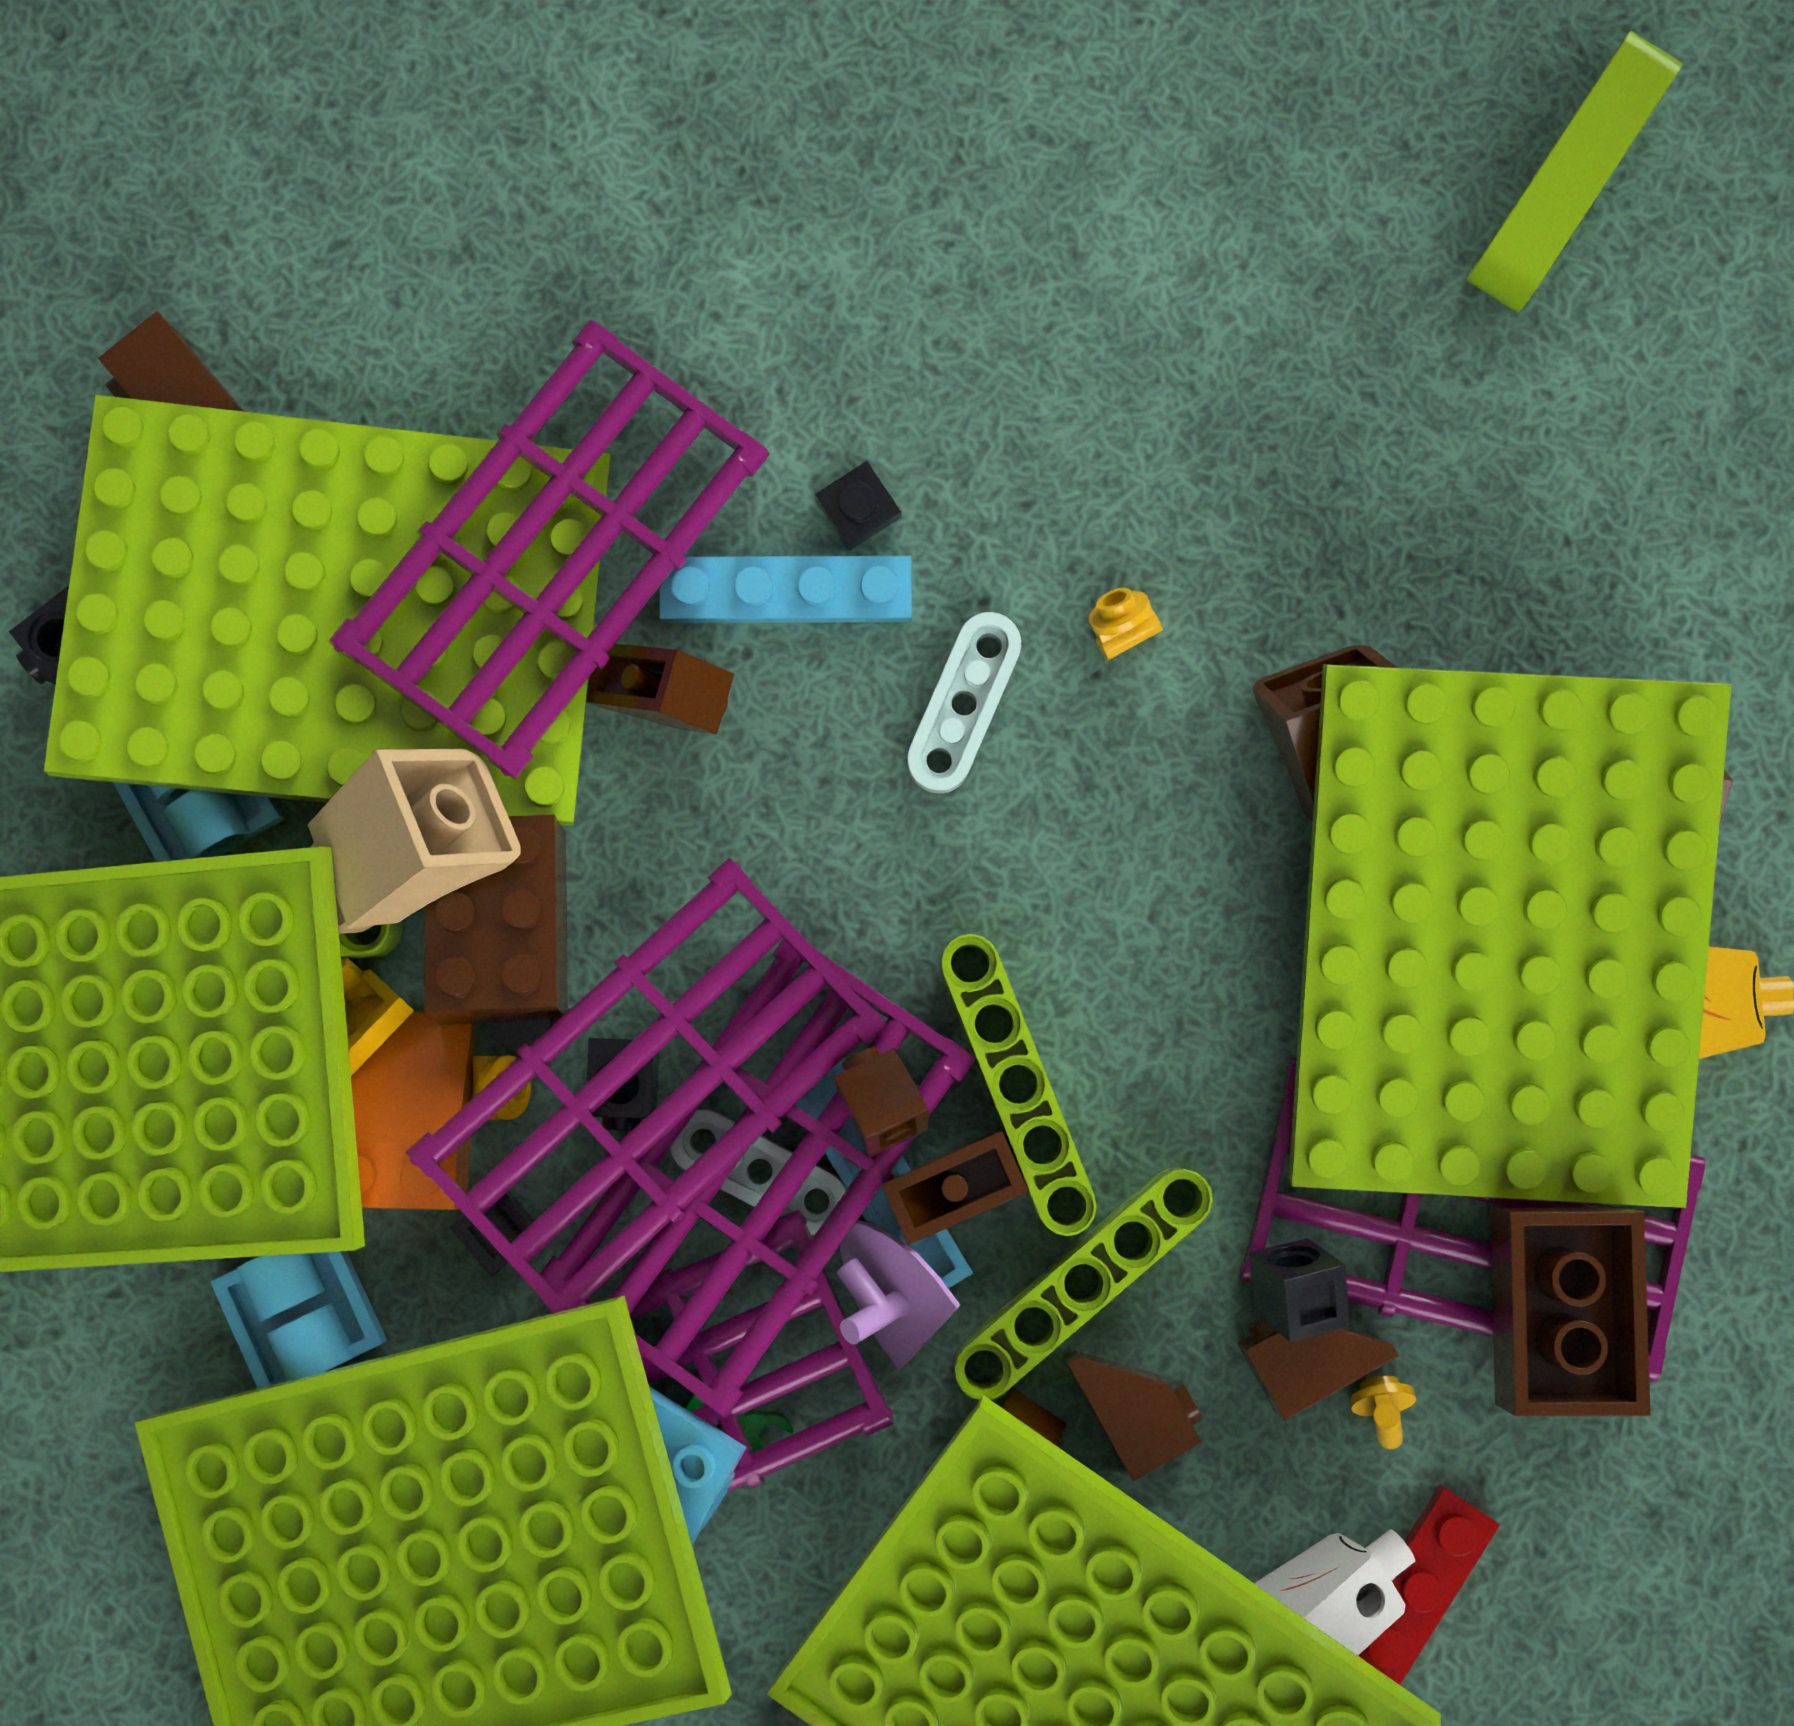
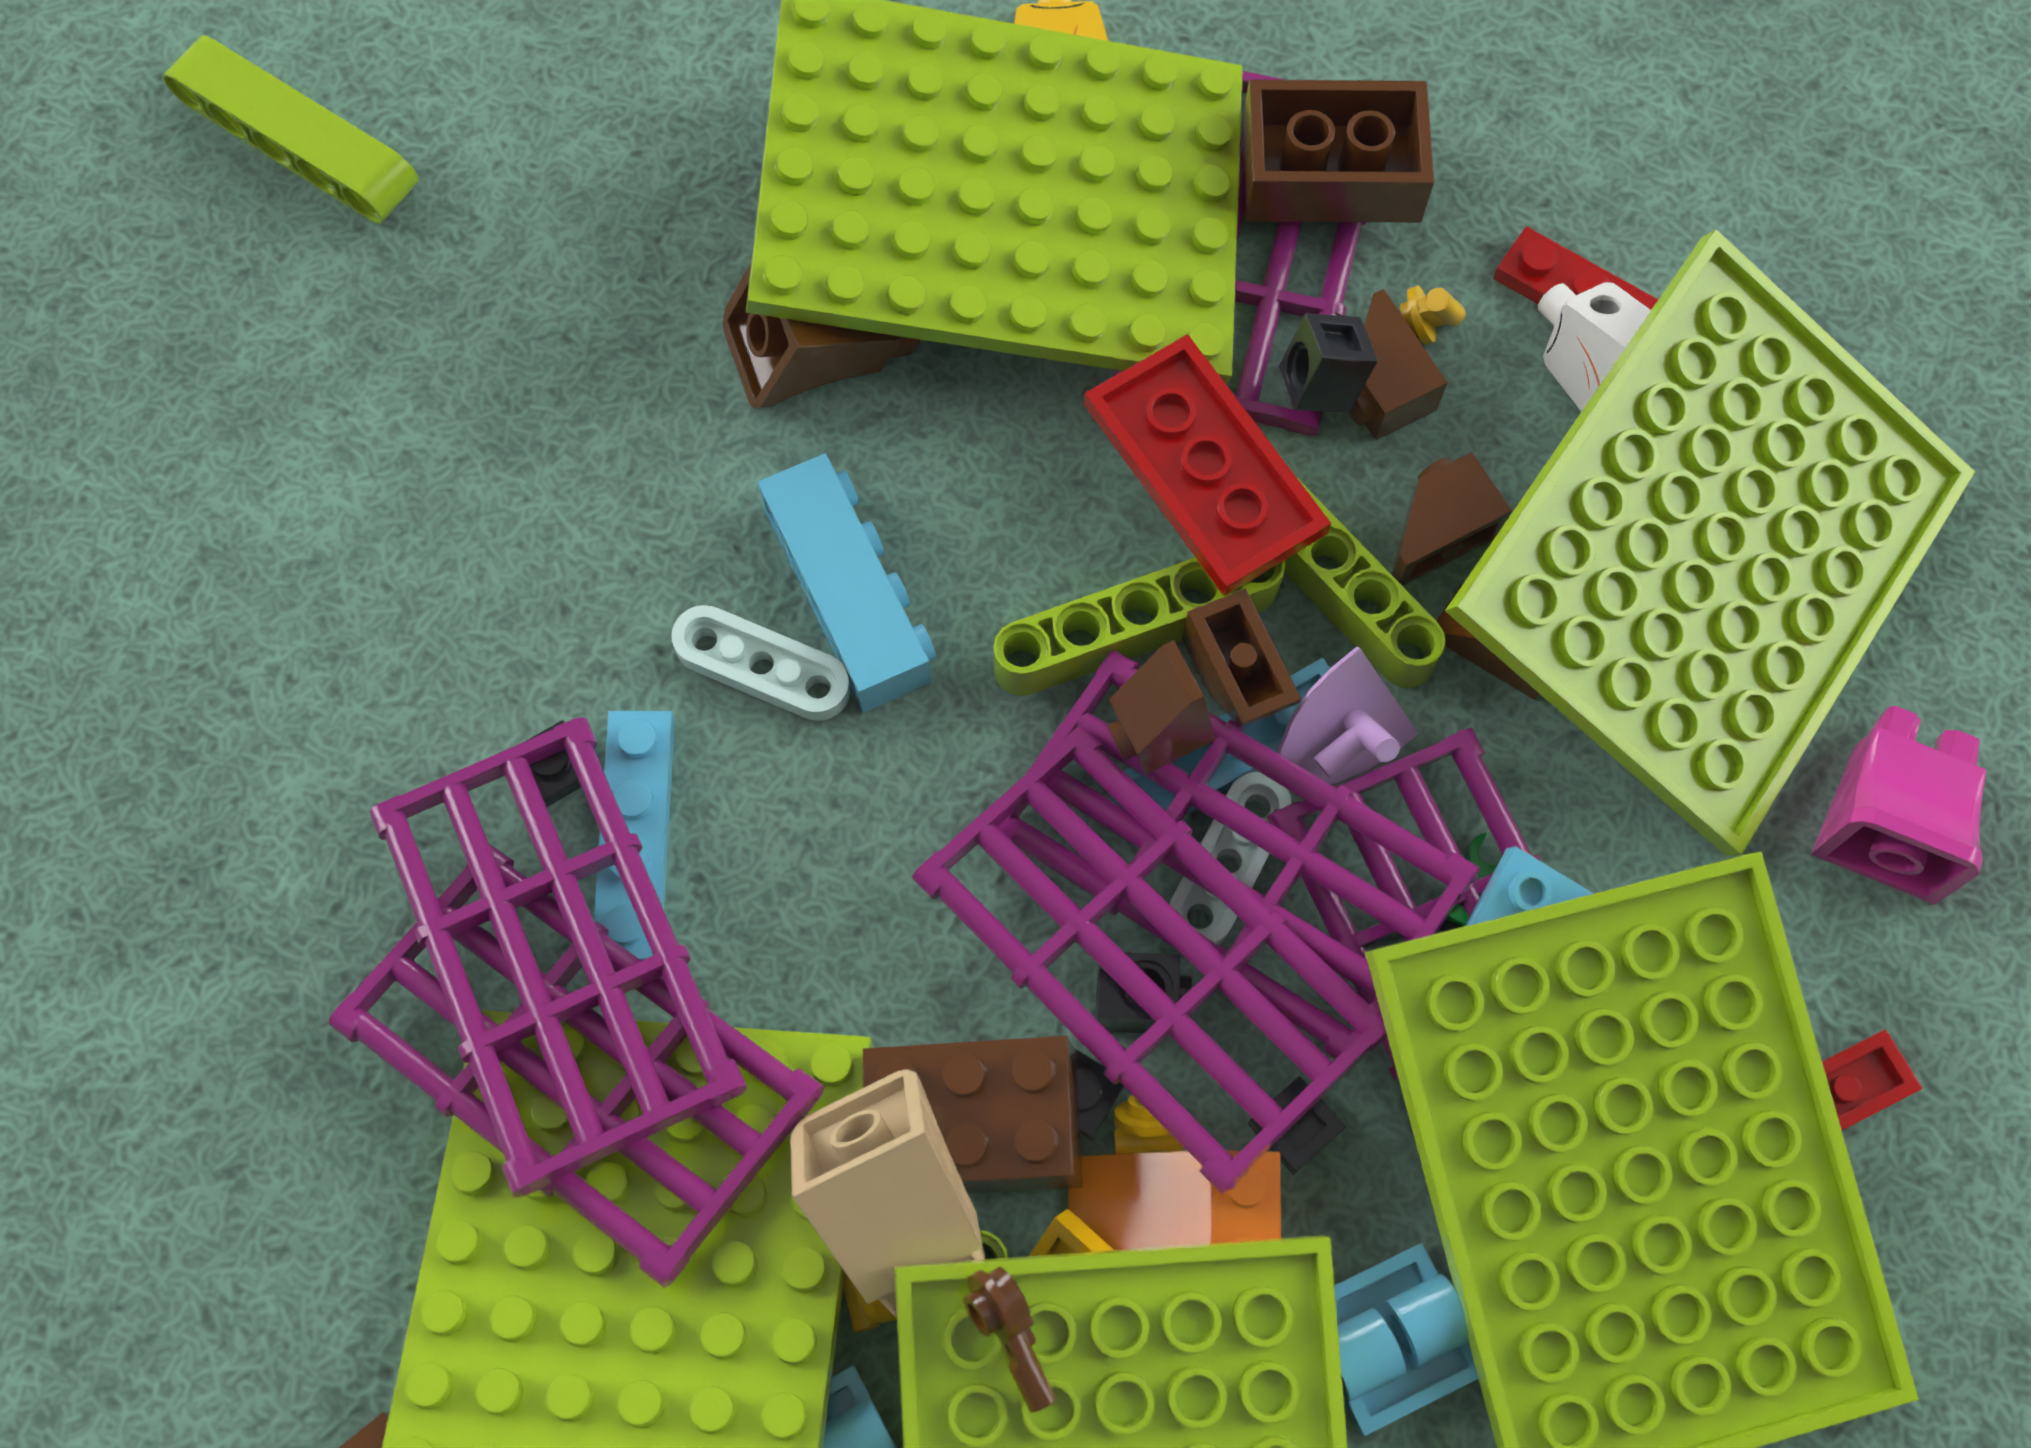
camera: 90 degrees left, 15 degrees down
(277, 940) = (1001, 1308): none -> reddish brown plate
(610, 571) = (605, 987): none -> magenta door
(662, 687) = (733, 947): reddish brown slope -> none
(1052, 782) = (846, 582): none -> medium azure brick
(1123, 621) = (687, 520): yellow plate -> none
(1172, 1153) = (1206, 464): none -> red plate

